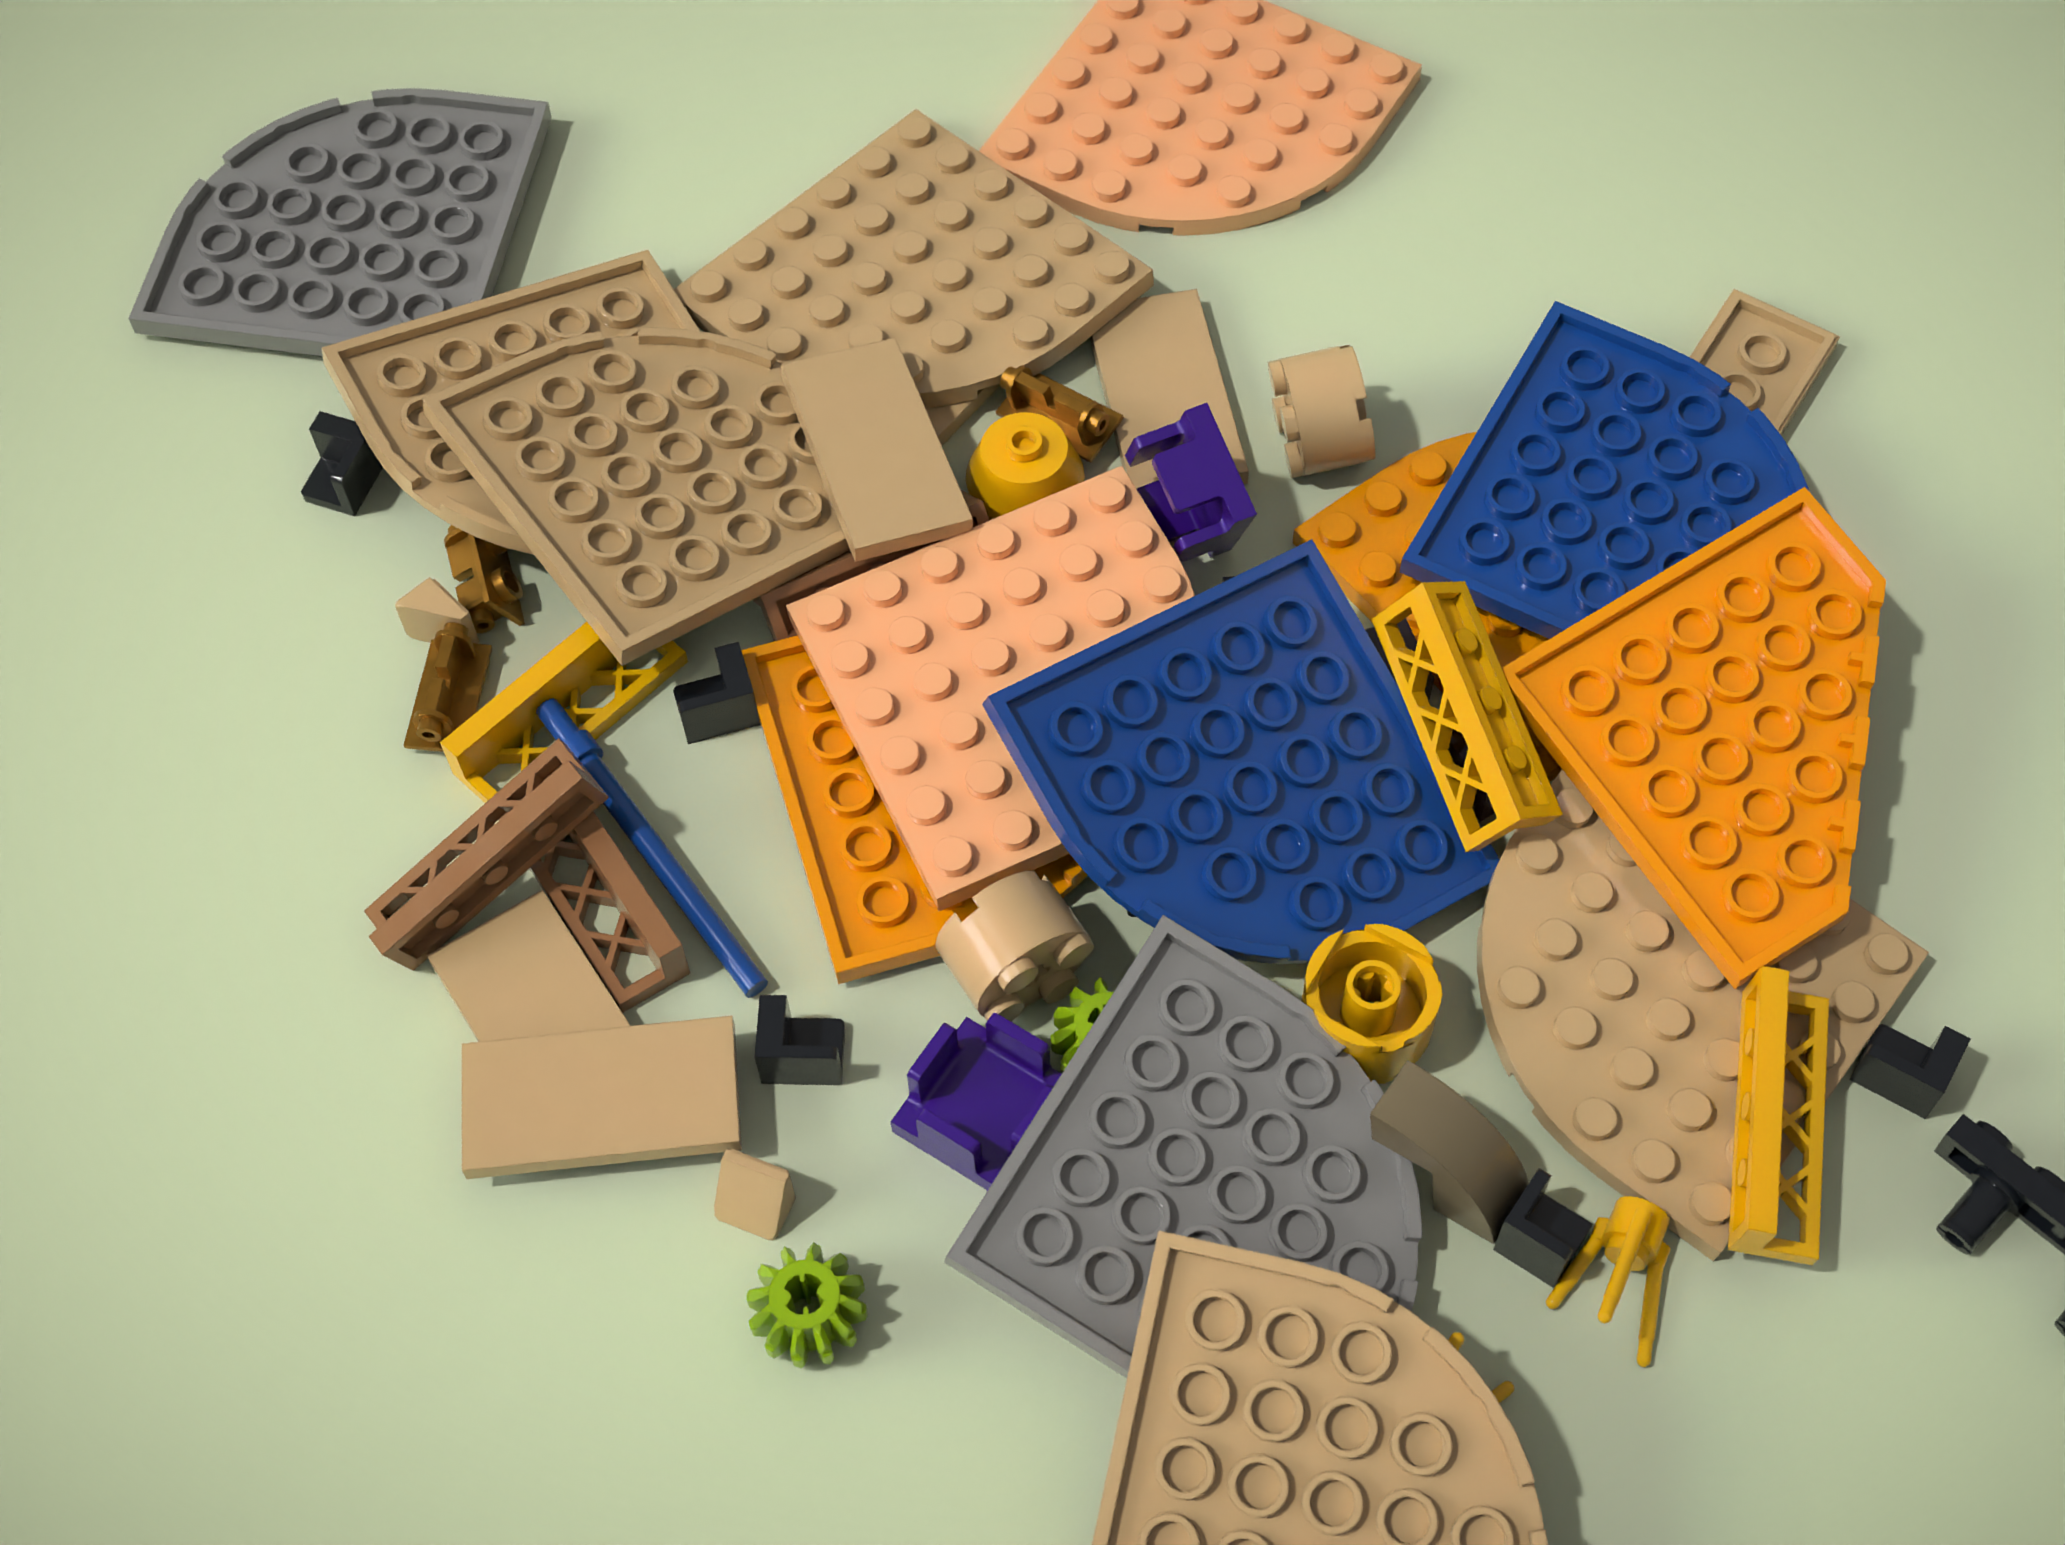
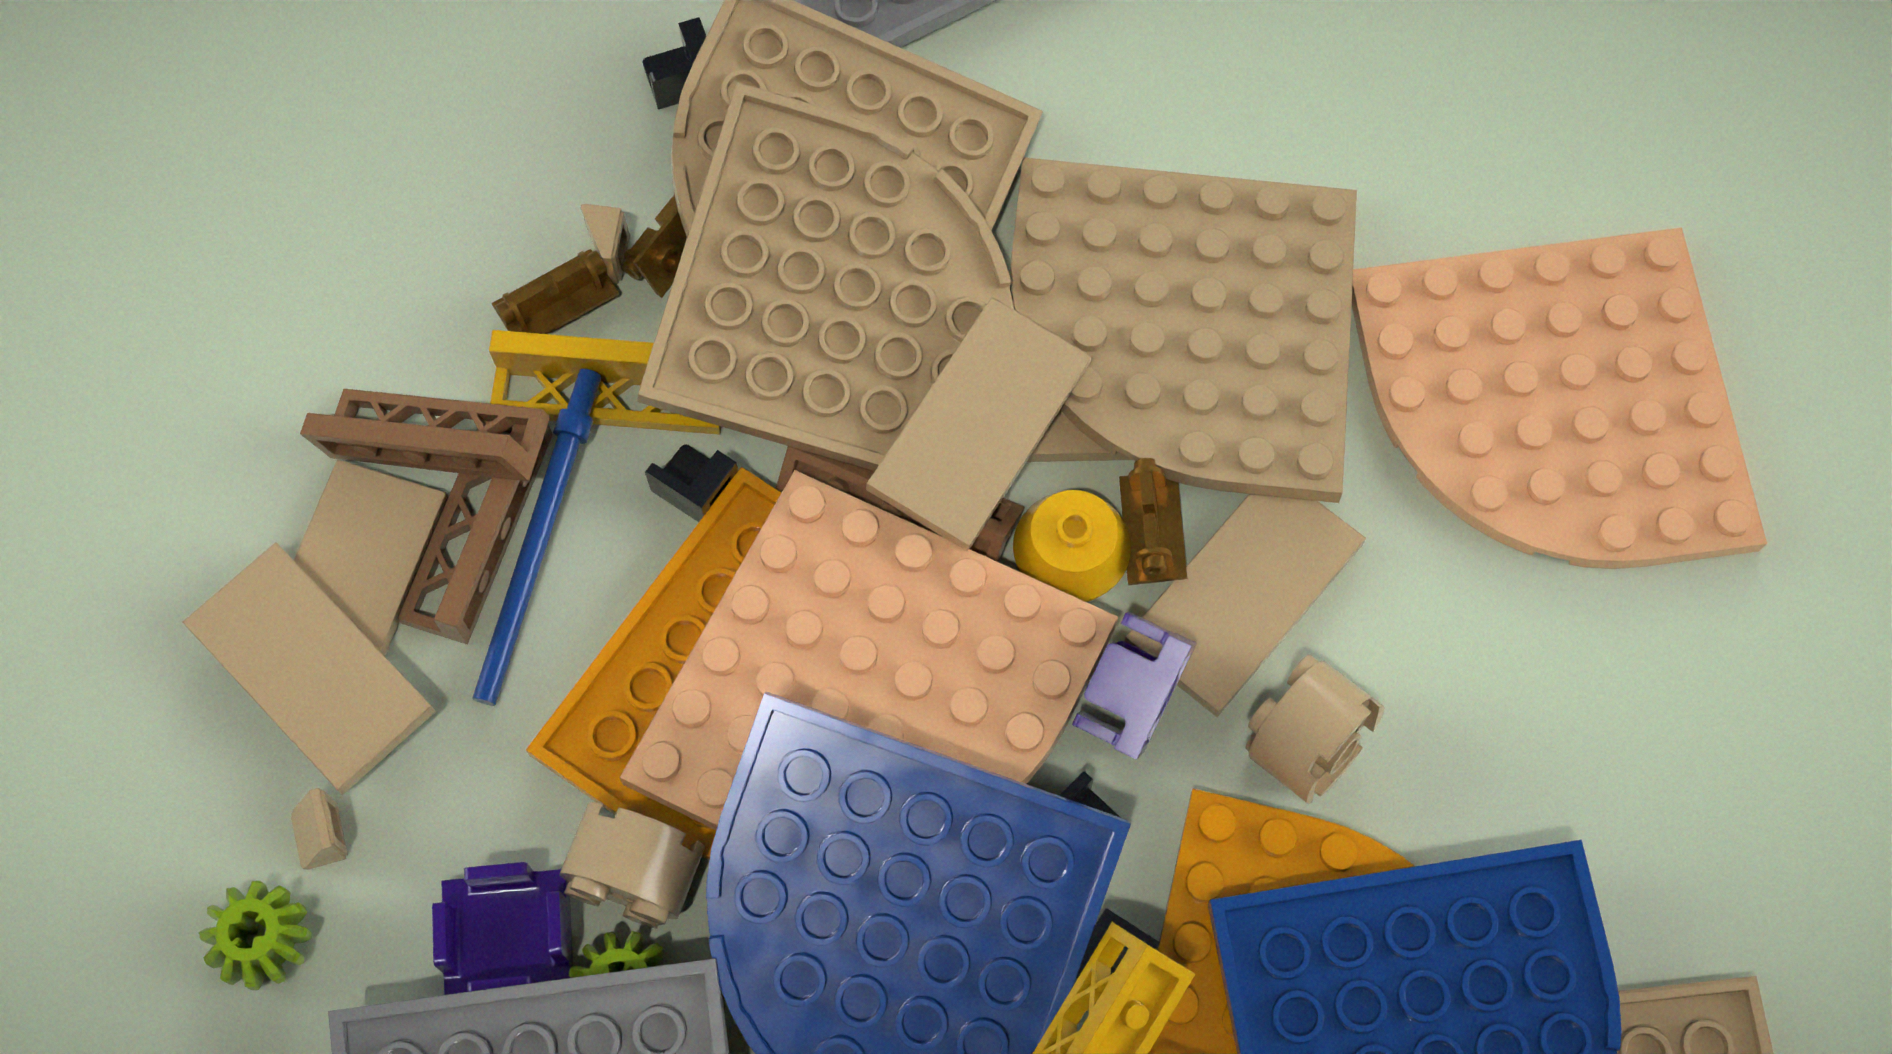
camera: 50 degrees right, 10 degrees up
(797, 1048) = (455, 767): black panel -> none

